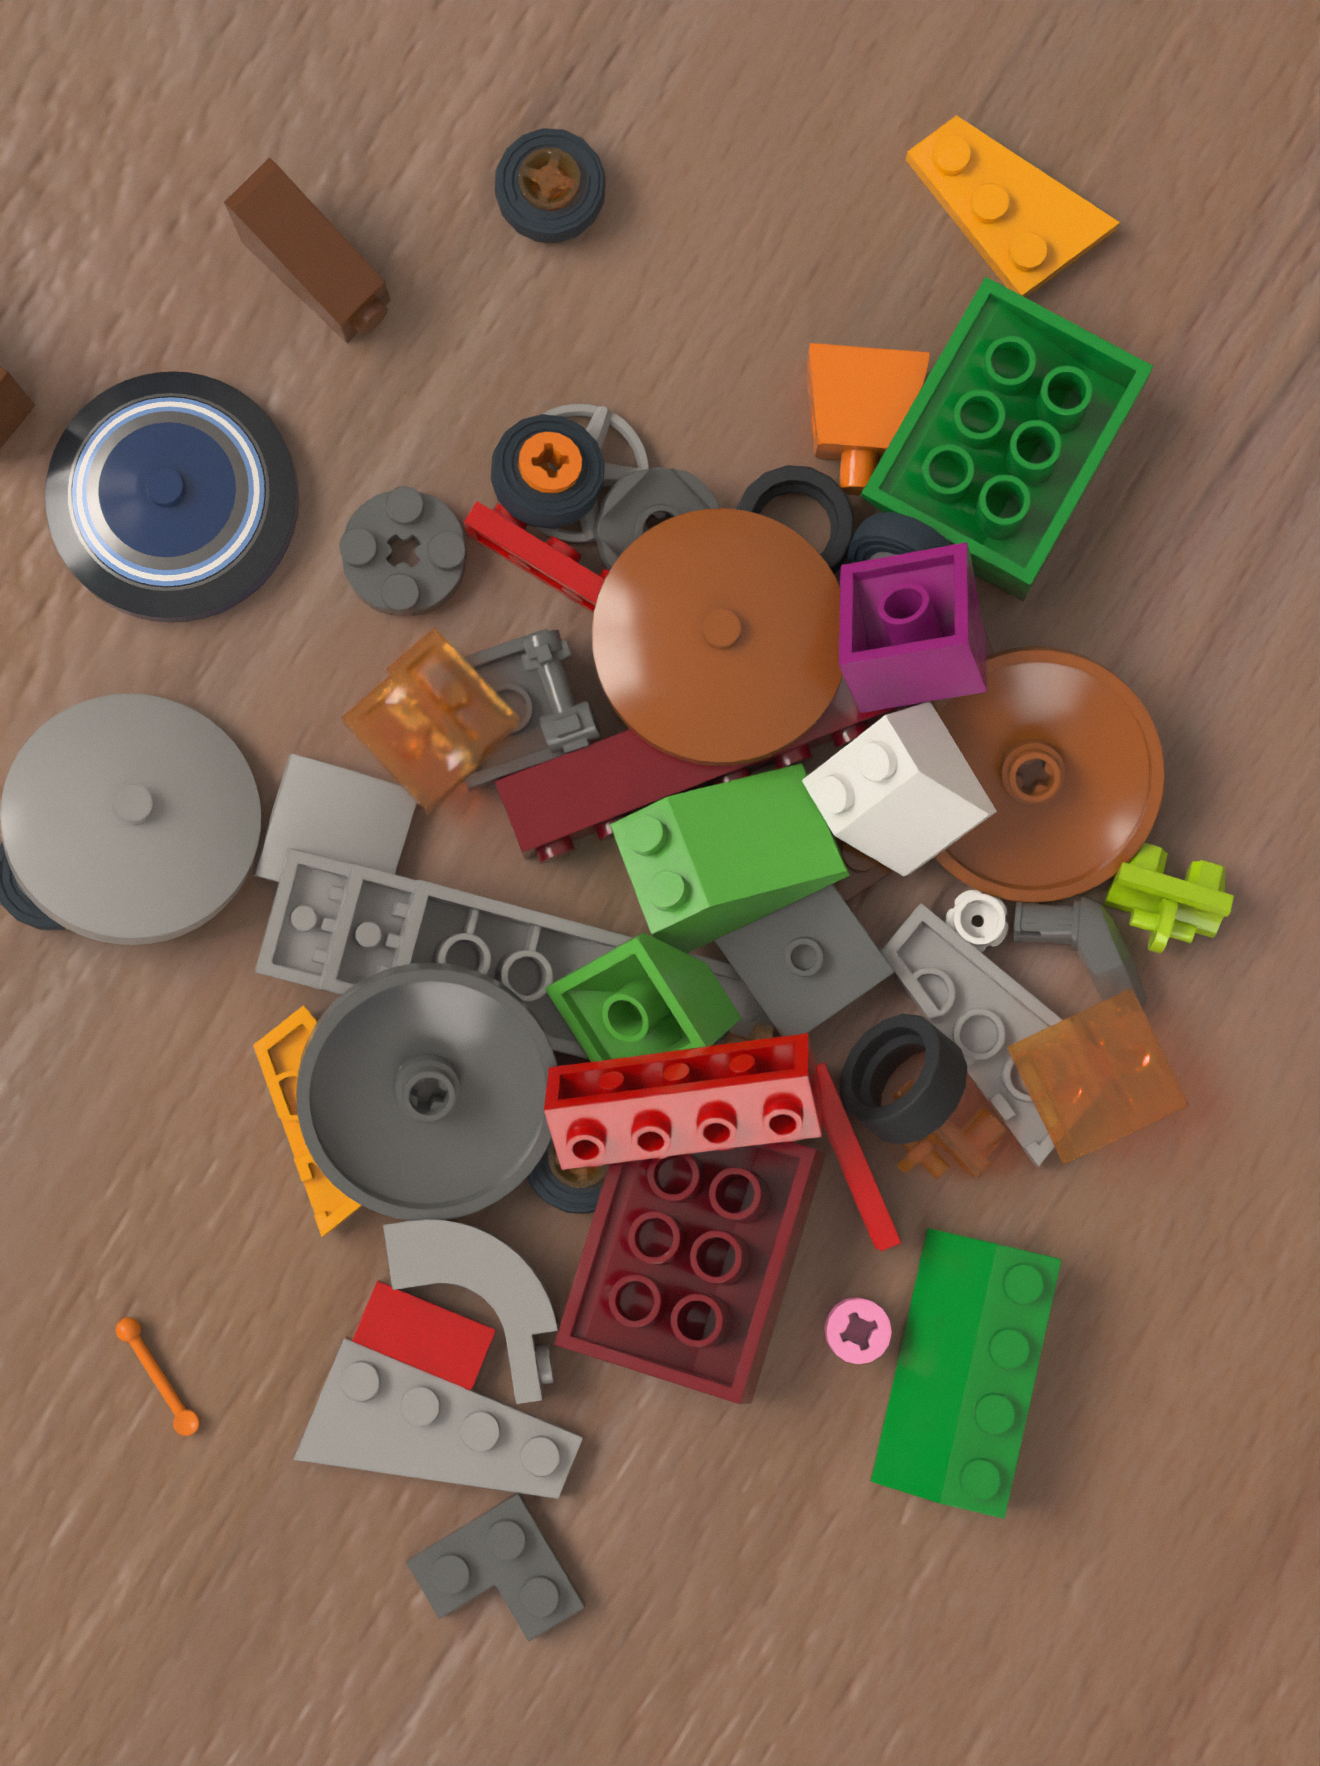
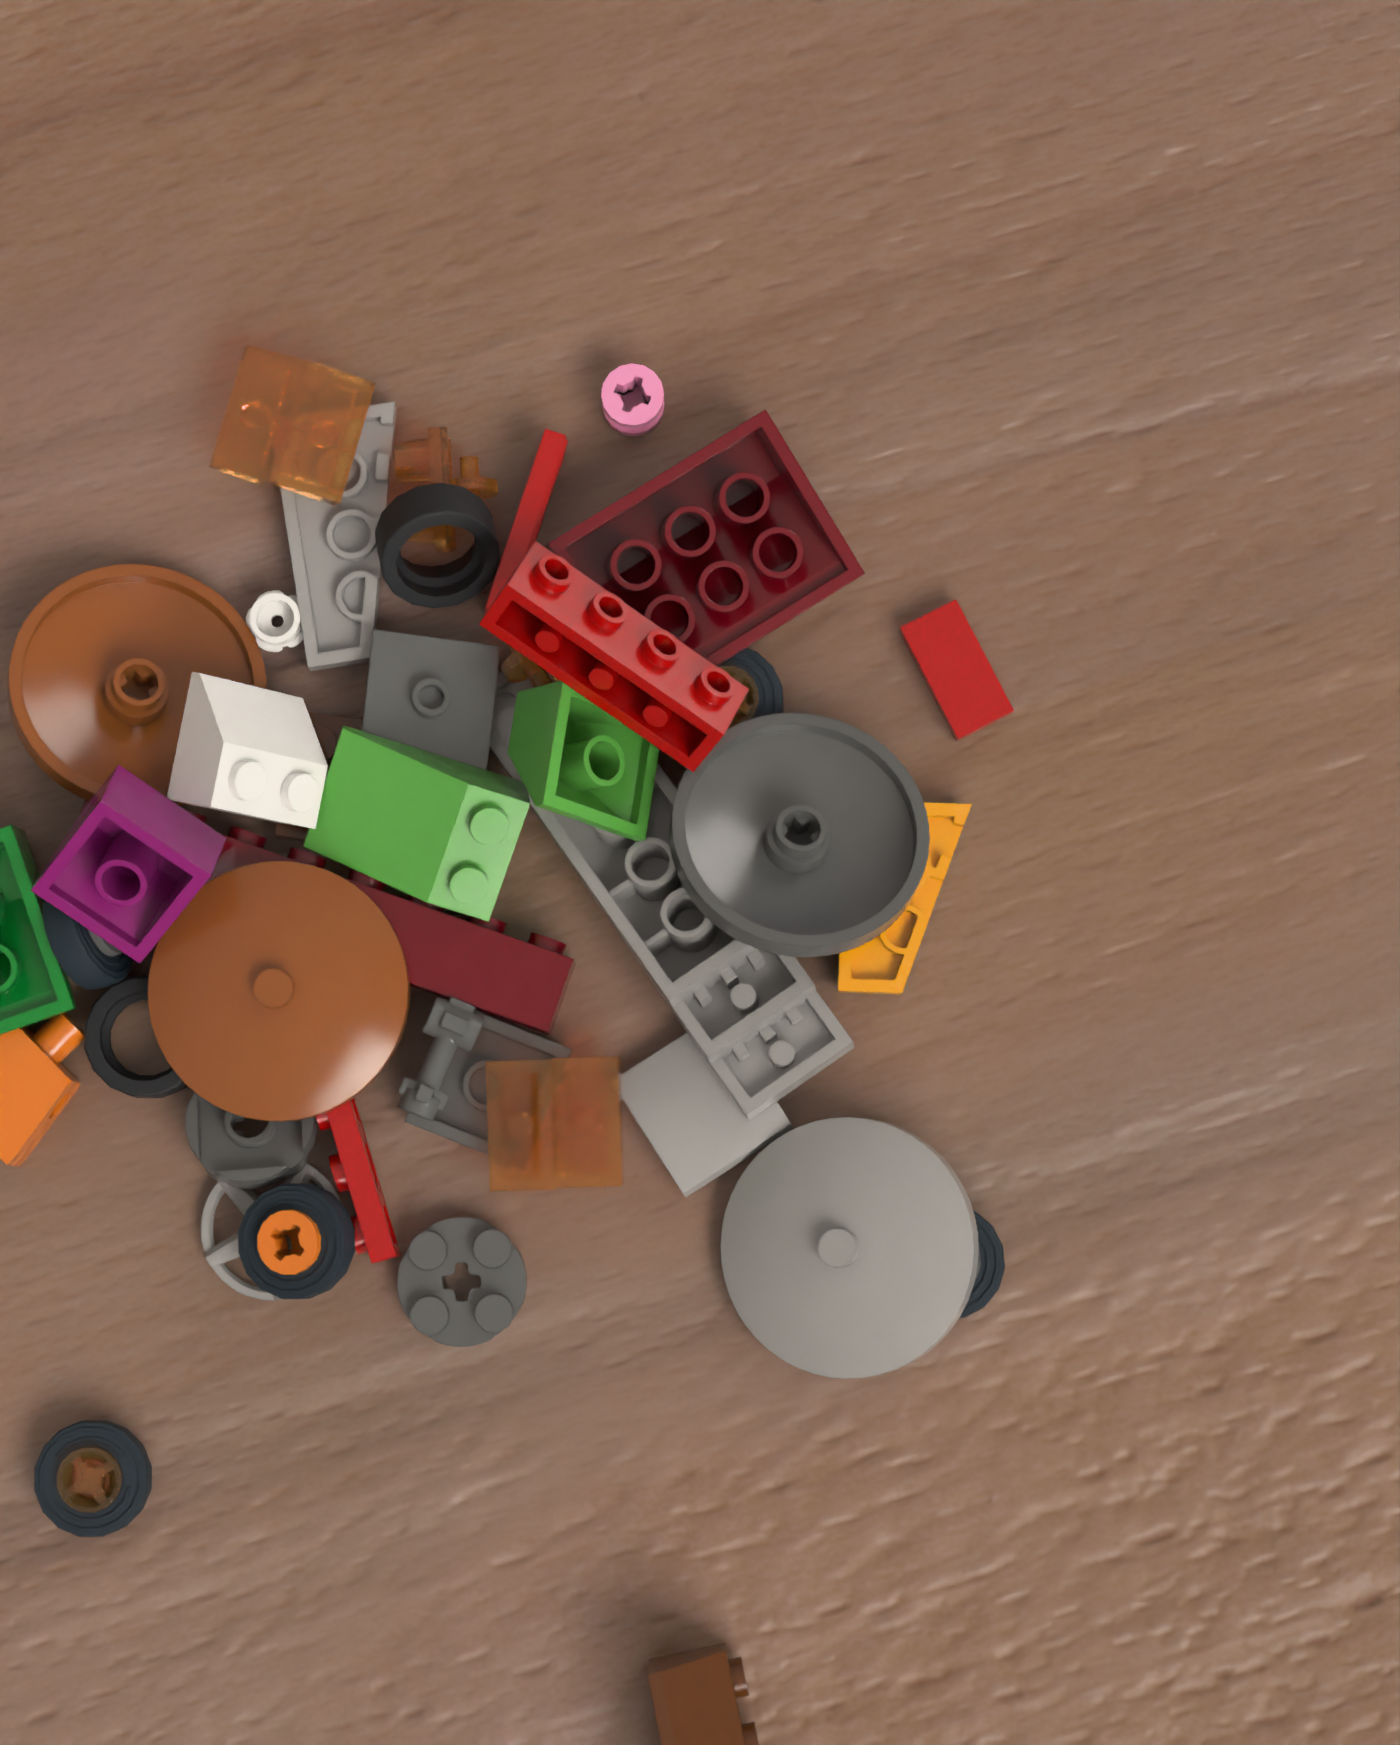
camera: 140 degrees left, 0 degrees up
(171, 496) = (603, 1486): dish -> none
(186, 1420) = (1187, 761): orange hinge -> none
(307, 252) = (330, 1581): reddish brown slope -> none
(419, 1426) = (1017, 608): light grey wing -> none
(491, 1267) = (863, 670): light grey arch -> none
(505, 1551) = (1031, 467): dark grey plate -> none
(965, 1372) = (579, 302): green slope -> none
(1091, 933) = (202, 536): dark grey arm -> none
(1166, 903) = (127, 507): lime hips -> none

